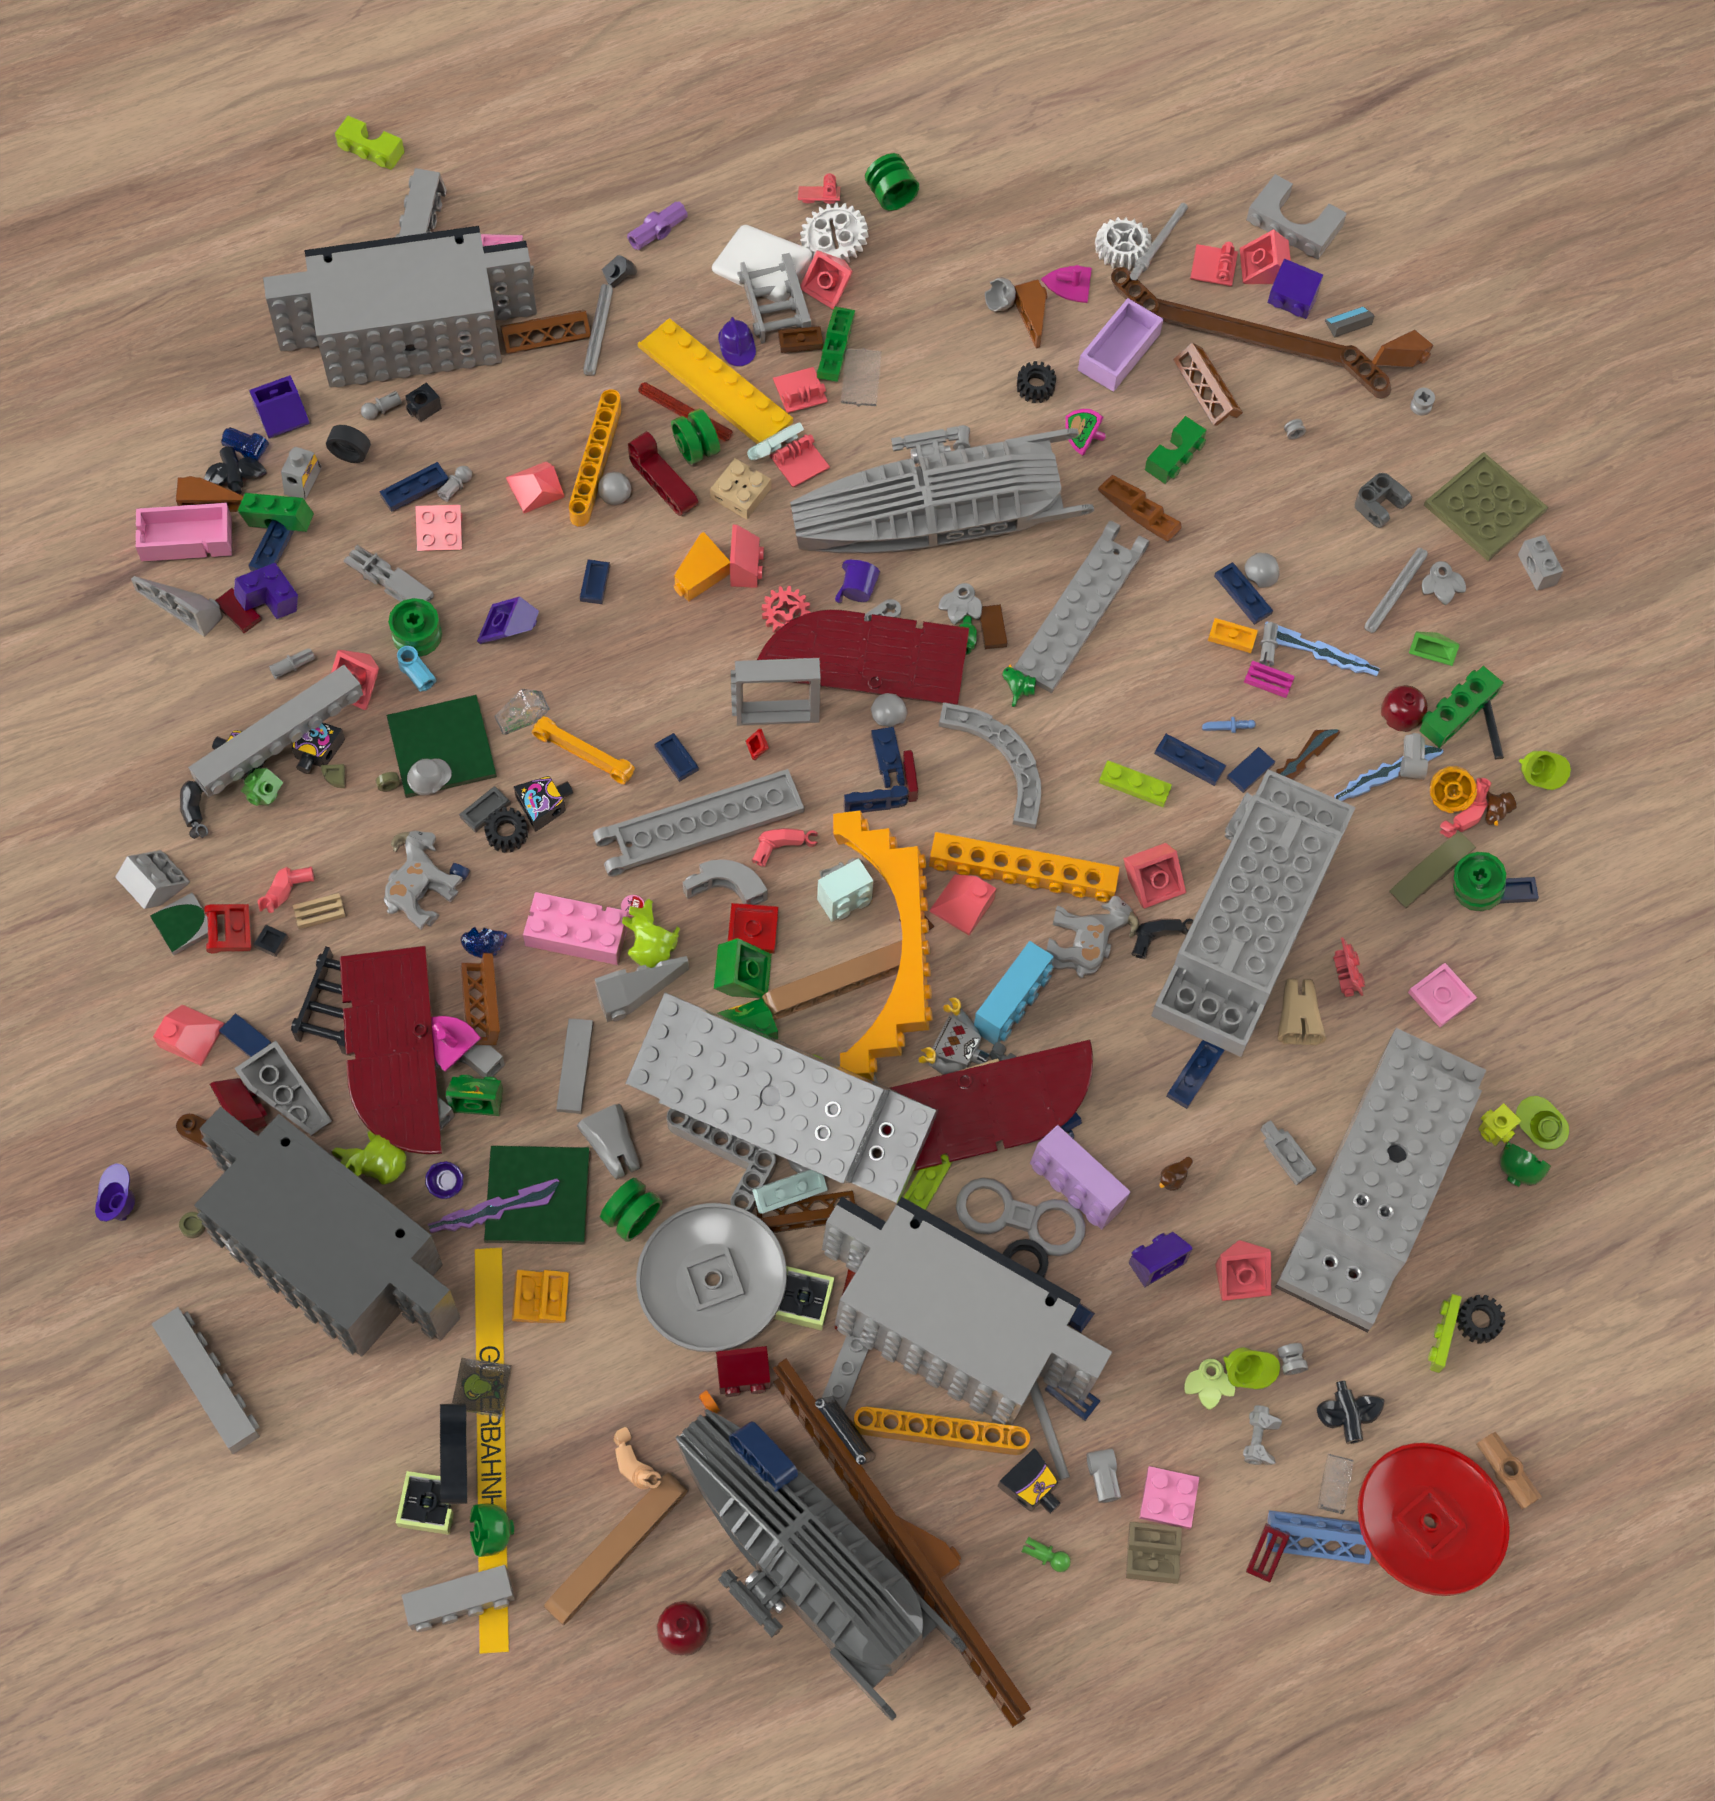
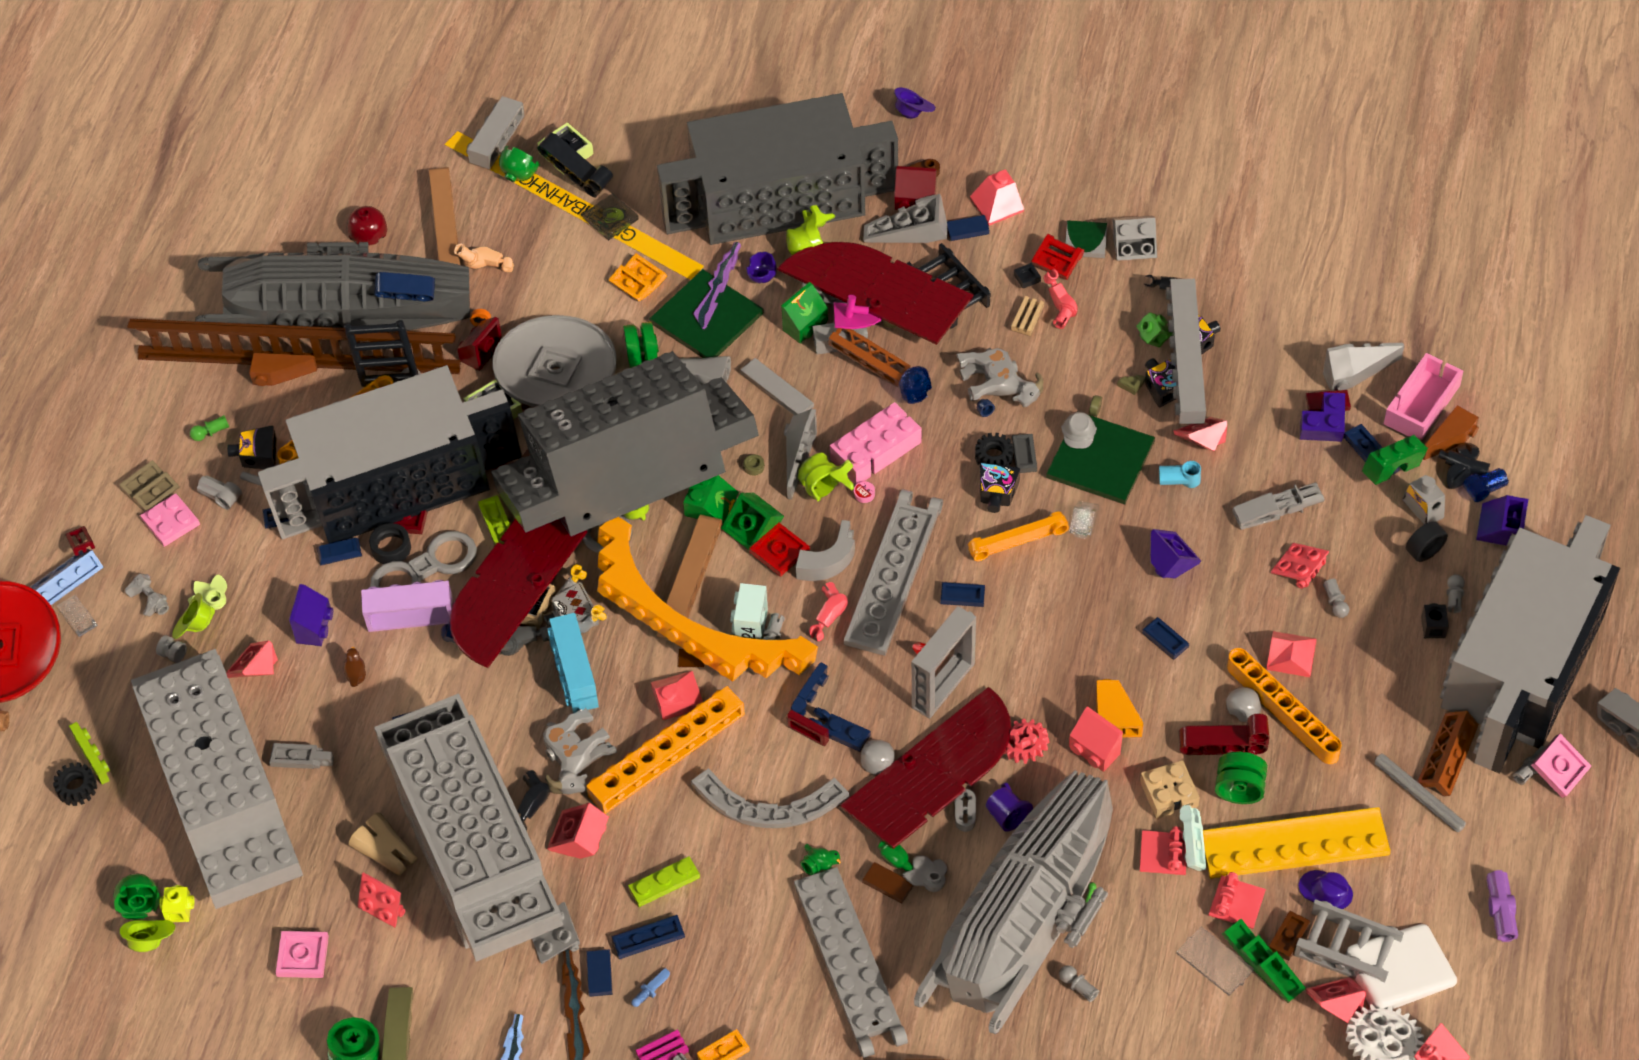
camera: 135 degrees right, 10 degrees down
(205, 1379) = (748, 88): light grey brick -> none
(291, 663) = (1251, 406): light grey axle -> none
(414, 486) = (1354, 569): dark blue plate -> none
(415, 625) = (1215, 491): green wheel -> none
(618, 270) = (1470, 846): black plate -> none
(679, 408) = (1281, 802): clear red axle -> none
(1349, 1412) = (108, 657): black plant -> none

